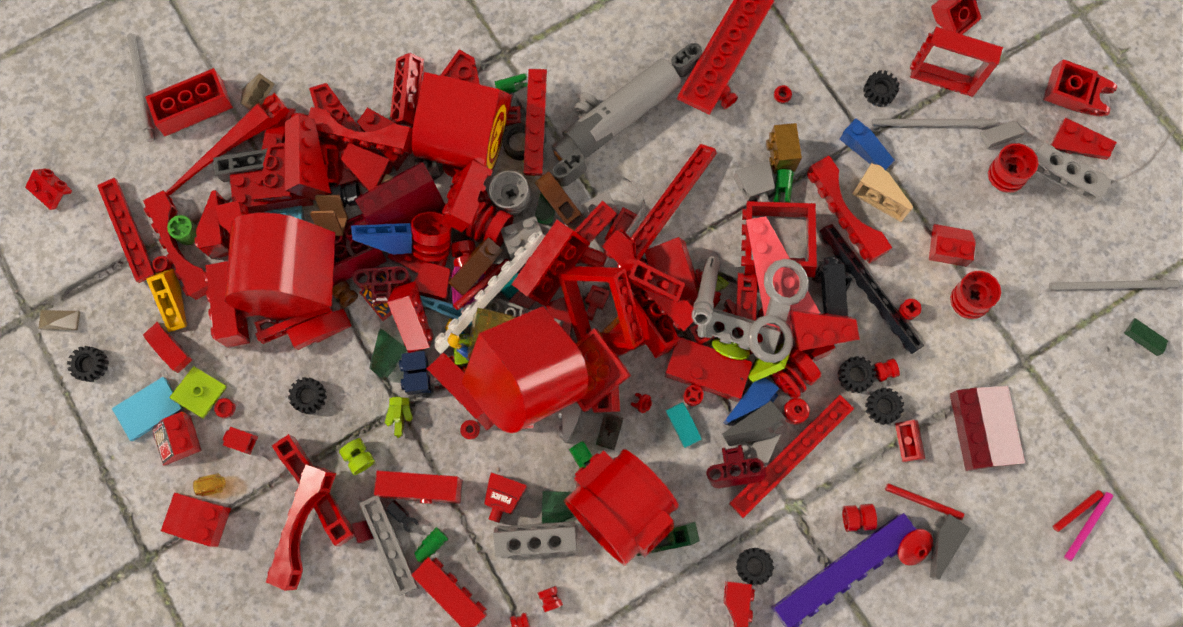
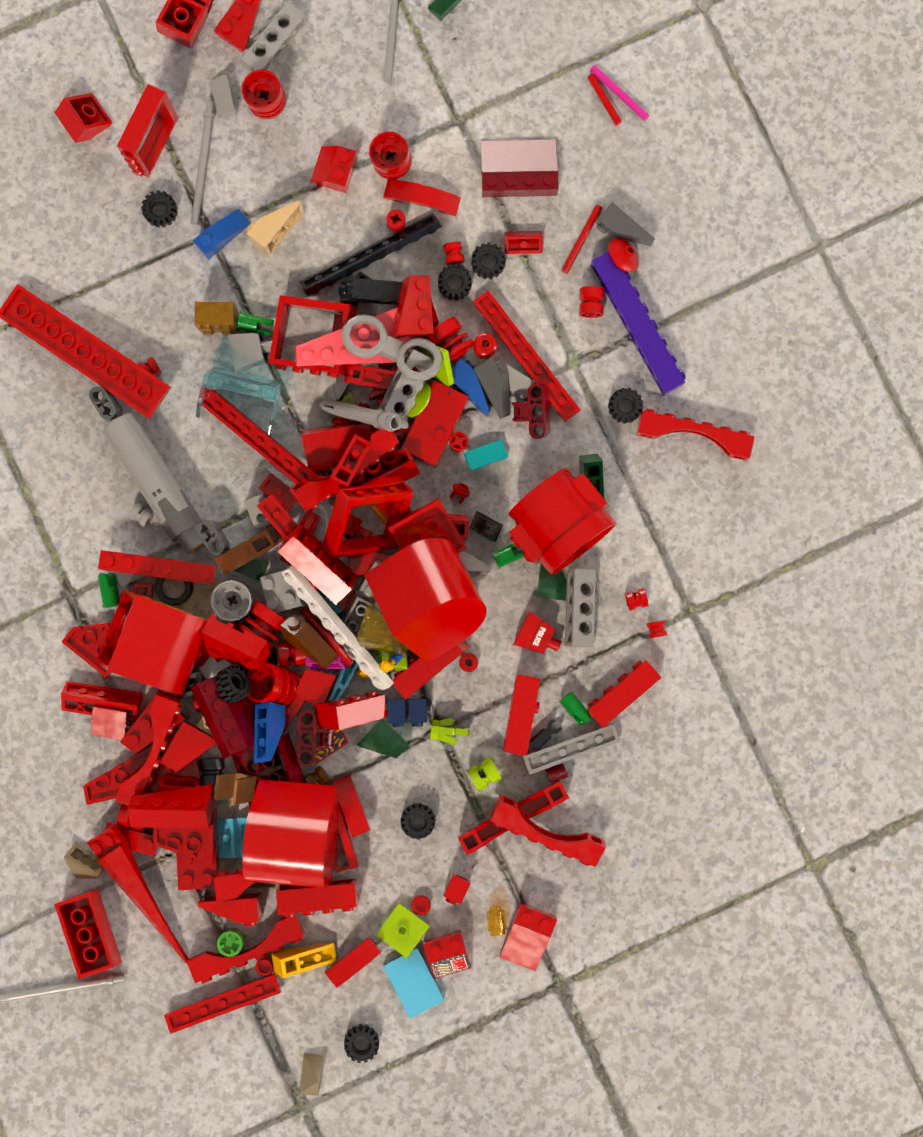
camera: 90 degrees left, 10 degrees up
(47, 187) = (165, 1087): red bracket -> none
(238, 163) = (167, 877): dark grey slope -> none
(387, 98) = (108, 722): none -> piece
(422, 190) = (239, 678): none -> black tyre
(720, 202) = (242, 383): none -> clear light blue windscreen
(785, 90) = (153, 304): red plate -> none
(868, 240) = (323, 247): red arch -> none
(940, 333) = (422, 195): none -> red slope

